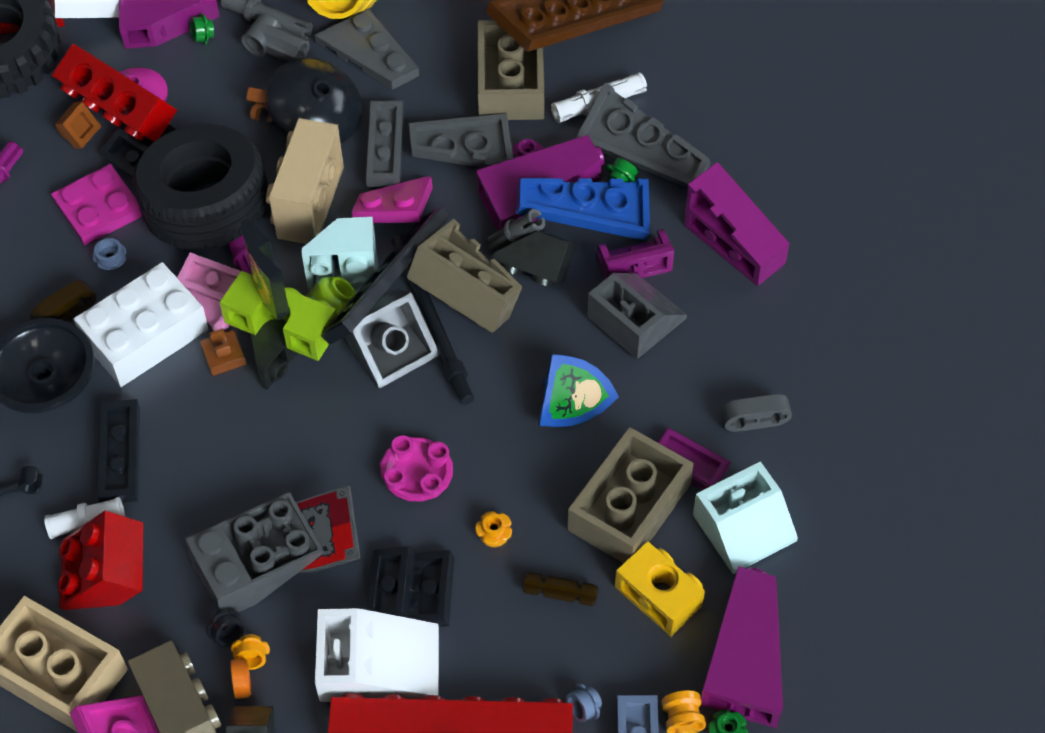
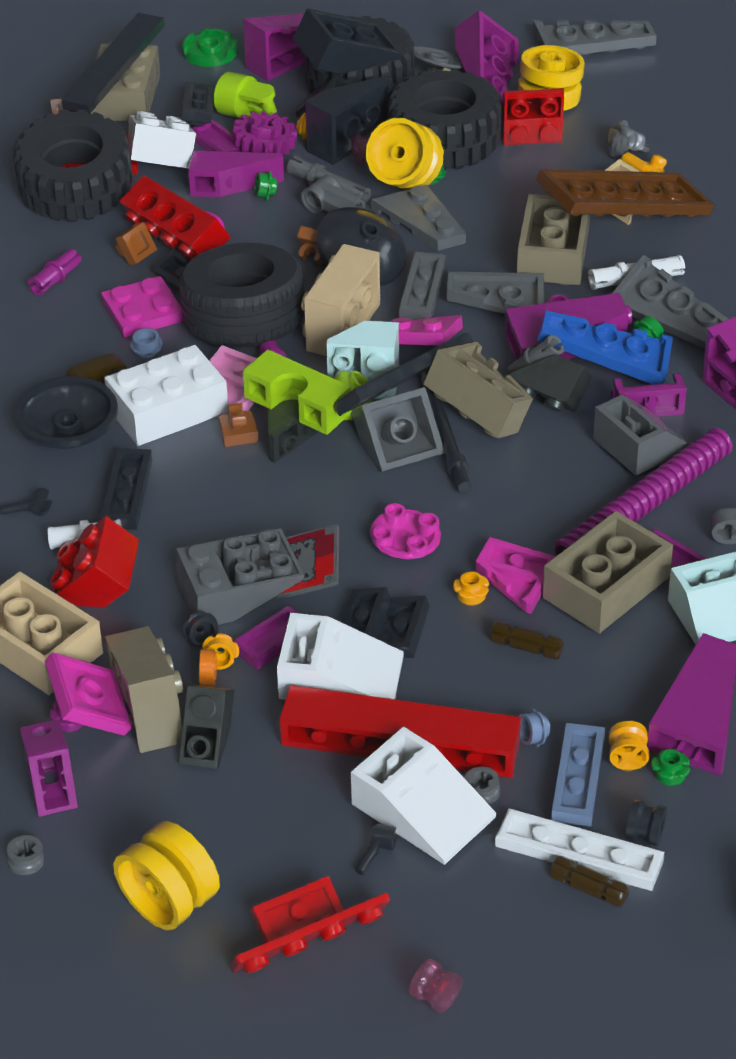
camera: 10 degrees right, 15 degrees down
(265, 273) = (290, 340): black slope -> none
(298, 622) = (264, 640): none -> magenta tile
(536, 503) = (514, 571): none -> dark pink wing
(574, 392) = (568, 487): shield -> none
(653, 385) = (659, 484): none -> magenta piece
(668, 607) = (623, 648): yellow brick -> none

